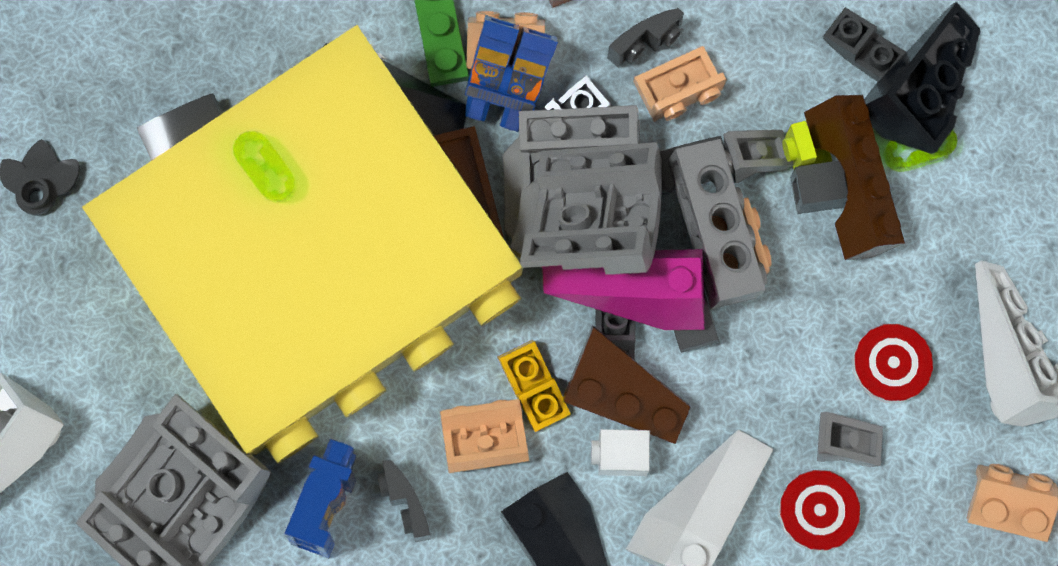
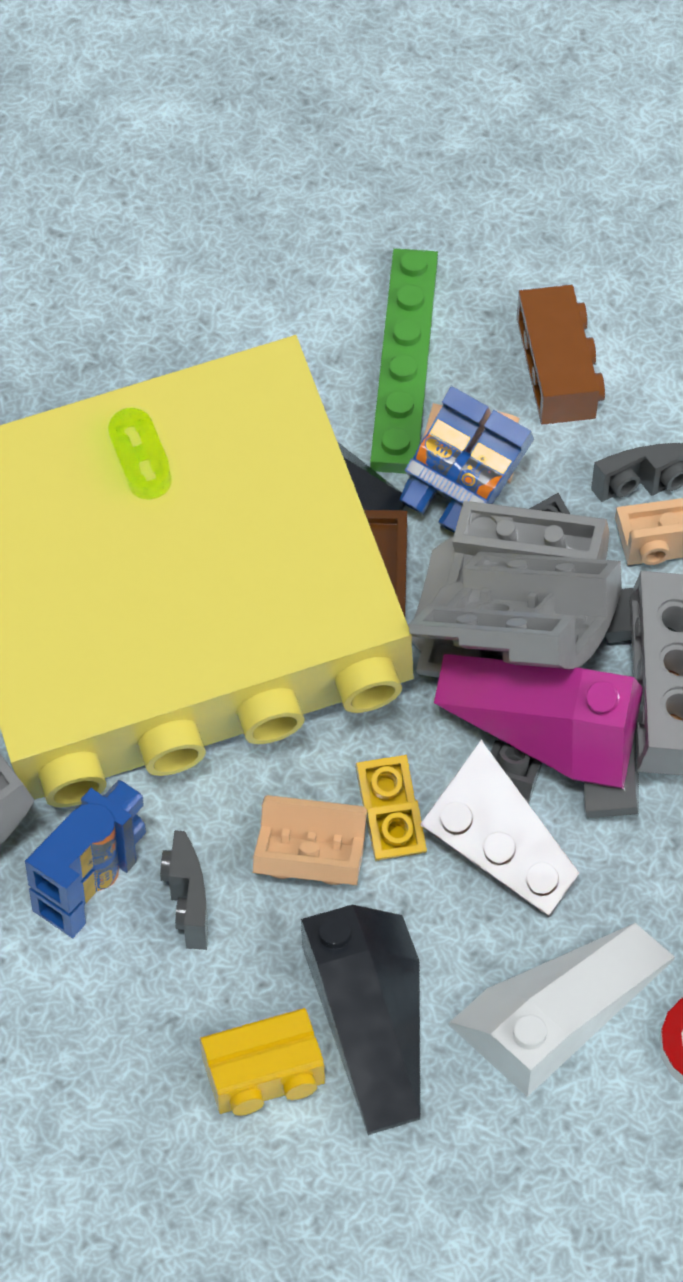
camera: 20 degrees right, 20 degrees down
(621, 452) = (477, 905): white brick -> none

